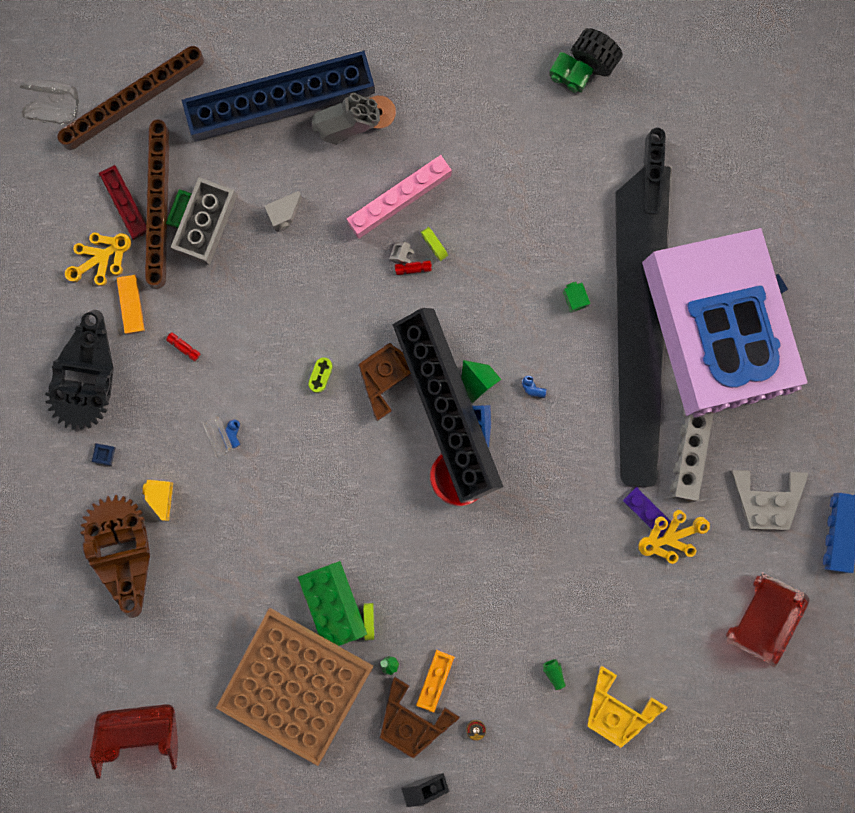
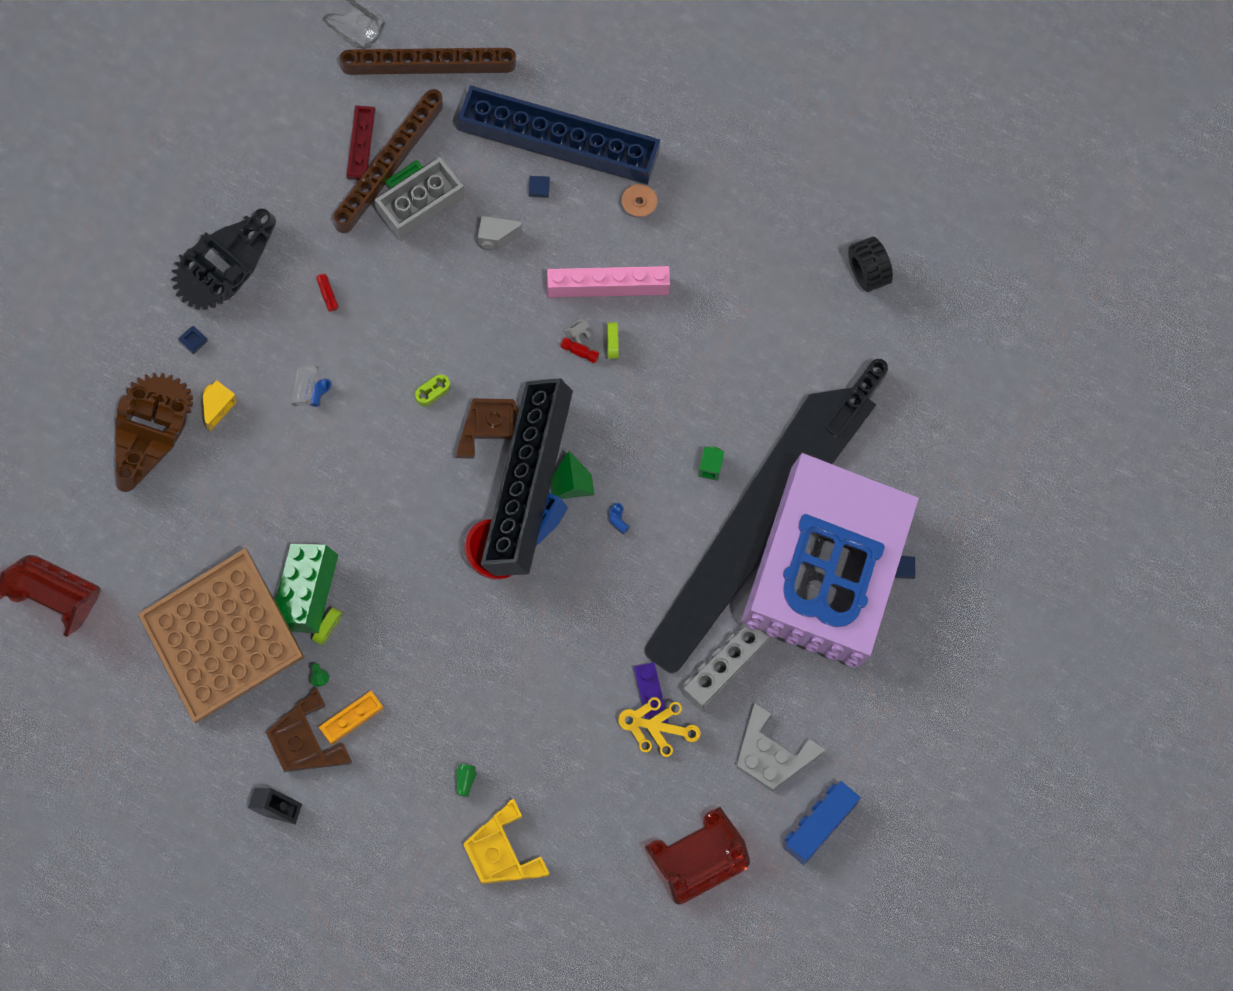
camera: 30 degrees right, 15 degrees down
(100, 256) = (308, 175): yellow plant -> none
(130, 304) = (306, 230): light orange tile -> none
(291, 149) = (539, 186): none -> dark blue tile
(346, 118) = (605, 186): dark grey brick -> none
(476, 730) = (358, 784): tile -> none
(570, 72) = (837, 270): green brick -> none

